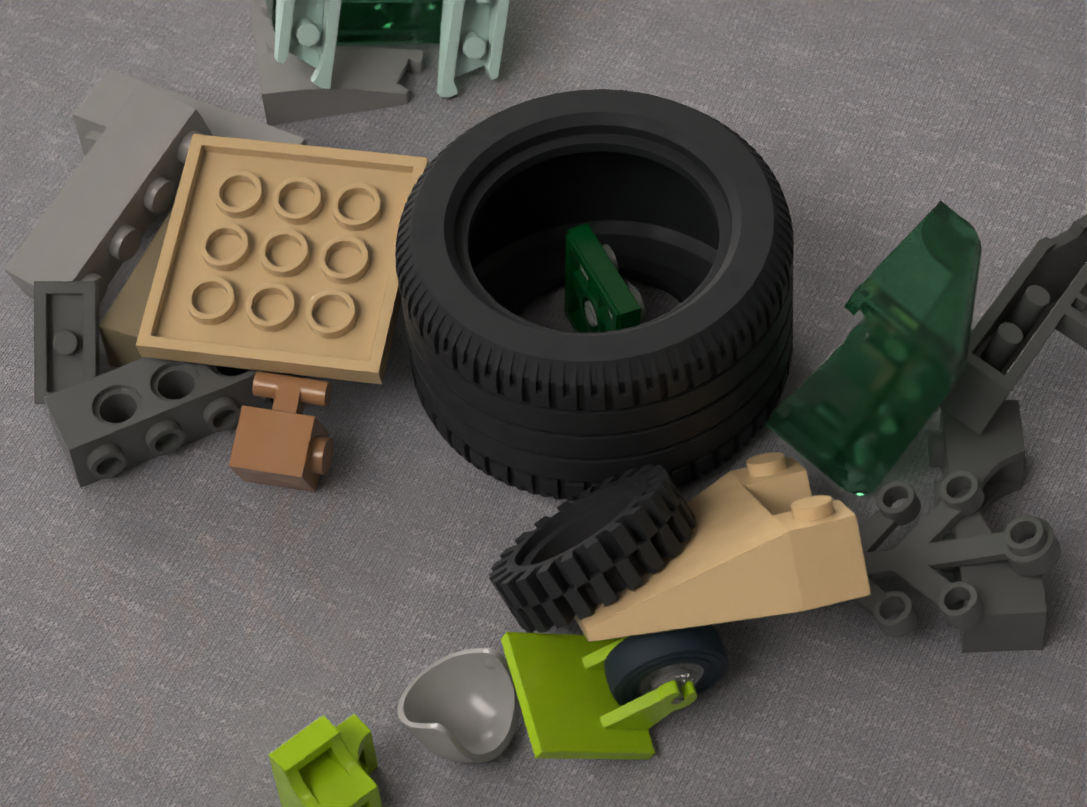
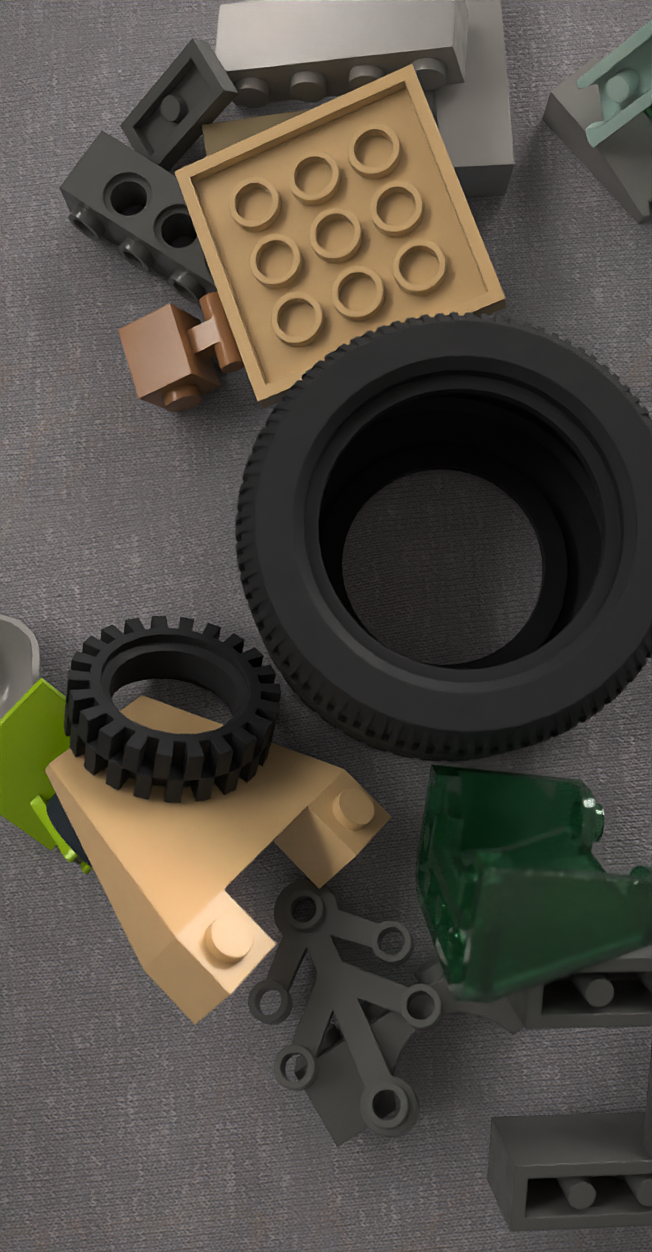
camera: 55 degrees right, 30 degrees up
(594, 289) = (478, 535): dark green piece -> none

